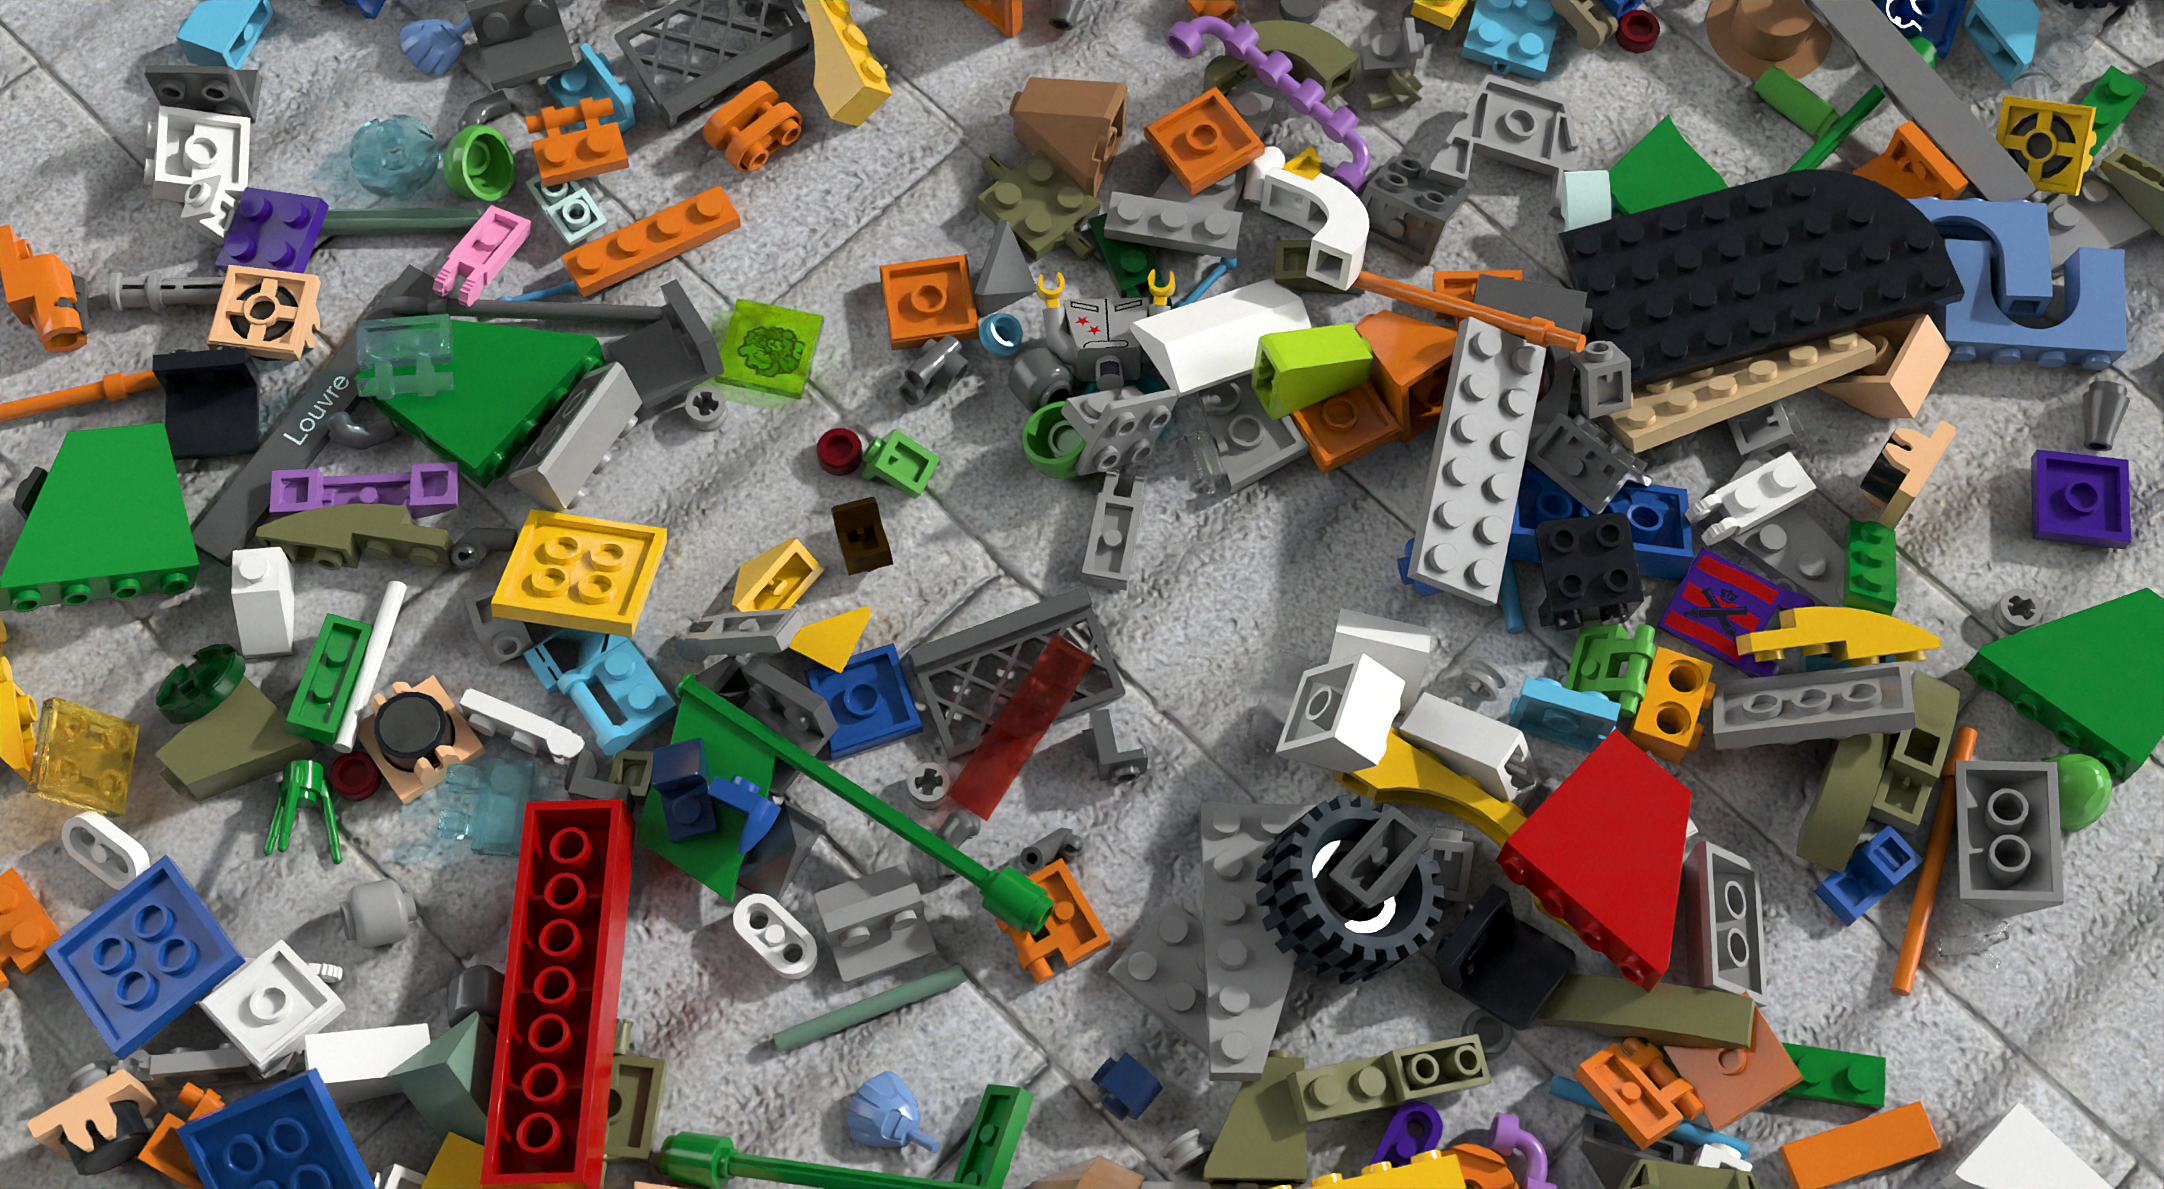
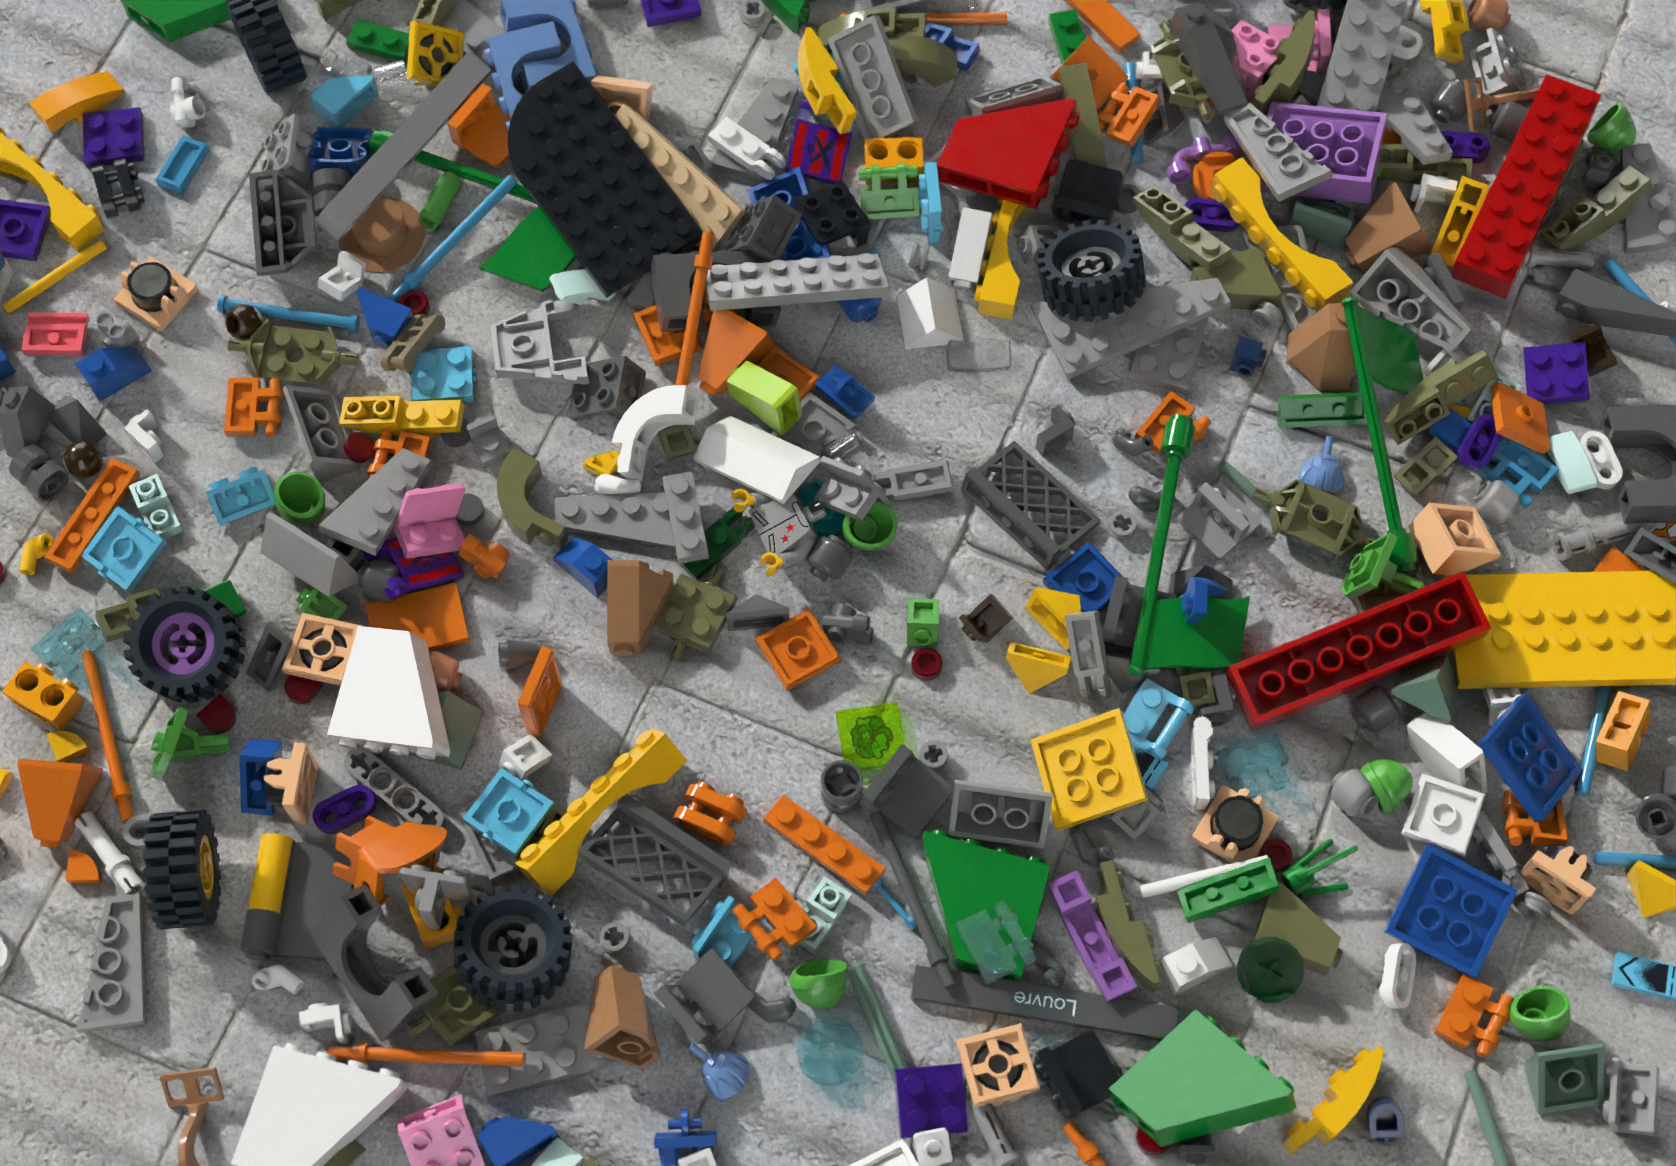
camera: 110 degrees left, 0 degrees up
(83, 758) = (1354, 1014): clear yellow plate -> none
(360, 948) = (1389, 782): none -> bright green hat
(482, 254) = (886, 943): bright pink hinge -> none
(680, 1087) = (1375, 571): none -> bright green piece
(683, 781) = (1200, 641): dark blue slope -> none
(710, 275) = (841, 787): none -> dark grey wheel
(777, 937) = (1254, 570): white plate -> none
(796, 1099) = (1292, 514): none -> olive plate
(1009, 330) = (803, 596): medium azure plate -> none
(1021, 727) = (1072, 484): clear red slope -> none
(1154, 95) = (585, 564): none -> blue slope
(1204, 141) = (613, 520): orange plate -> none
(1225, 264) = (717, 495): dark azure hinge -> none
(1273, 72) = (545, 491): medium lavender bar -> none
(1287, 487) = (845, 392): none -> blue hips
(1342, 715) = (990, 307): white slope -> none
(1381, 859) = (1075, 248): dark grey slope -> none
(1403, 88) = (515, 424): olive plate -> none
(1604, 378) = (693, 234): light grey bracket -> none
(1677, 38) = (413, 279): none -> dark azure bar
(1869, 567) = (767, 78): green plate -> none
(1903, 470) = (697, 74): light nougat piece -> none

